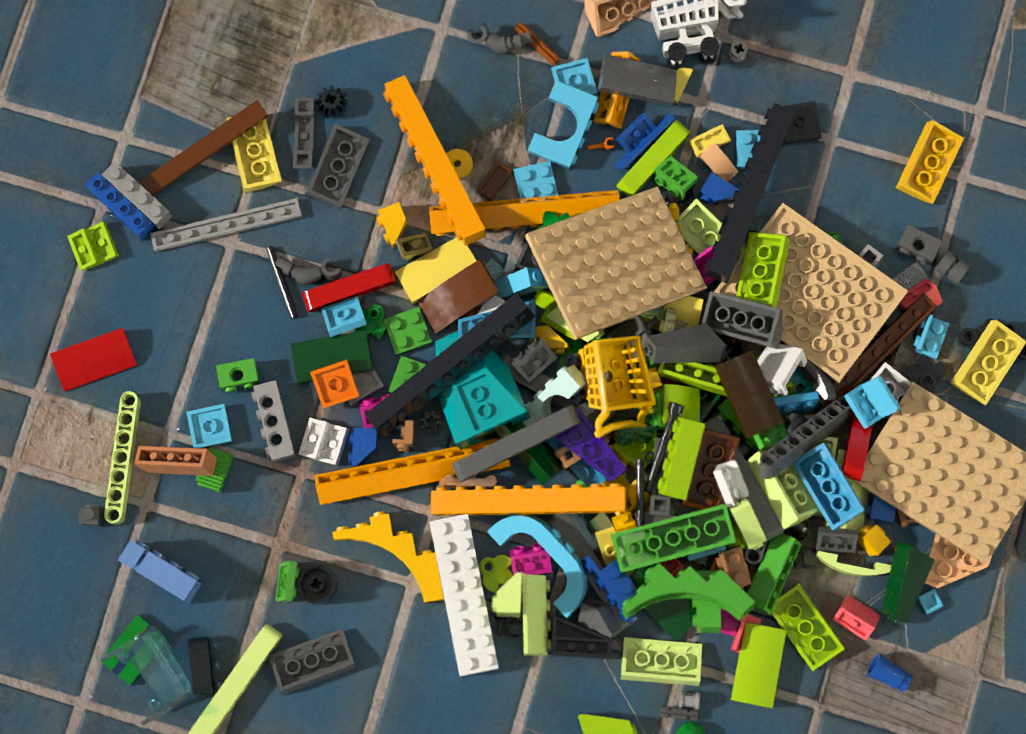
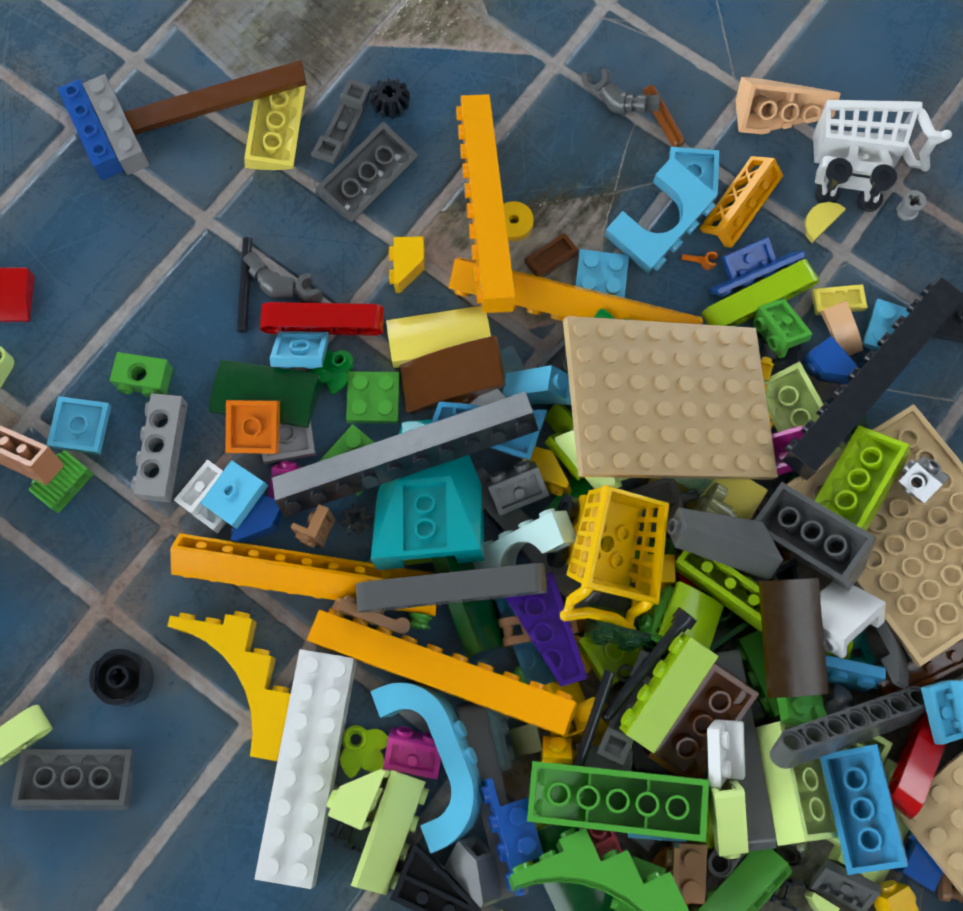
camera: 20 degrees right, 5 degrees down
(93, 246) = (41, 165): lime slope -> none
(226, 225) = (207, 196): light grey tile -> none
(285, 587) = (78, 670): bright green plate -> none
(341, 434) = (234, 494): none -> medium azure plate
(413, 246) = (420, 295): olive slope -> none
(501, 473) = (419, 621): none -> bright green bush
(606, 545) = (522, 771): light yellow plate -> none
(637, 80) = (773, 195): dark grey slope -> none
(802, 255) = (922, 478): none -> brick

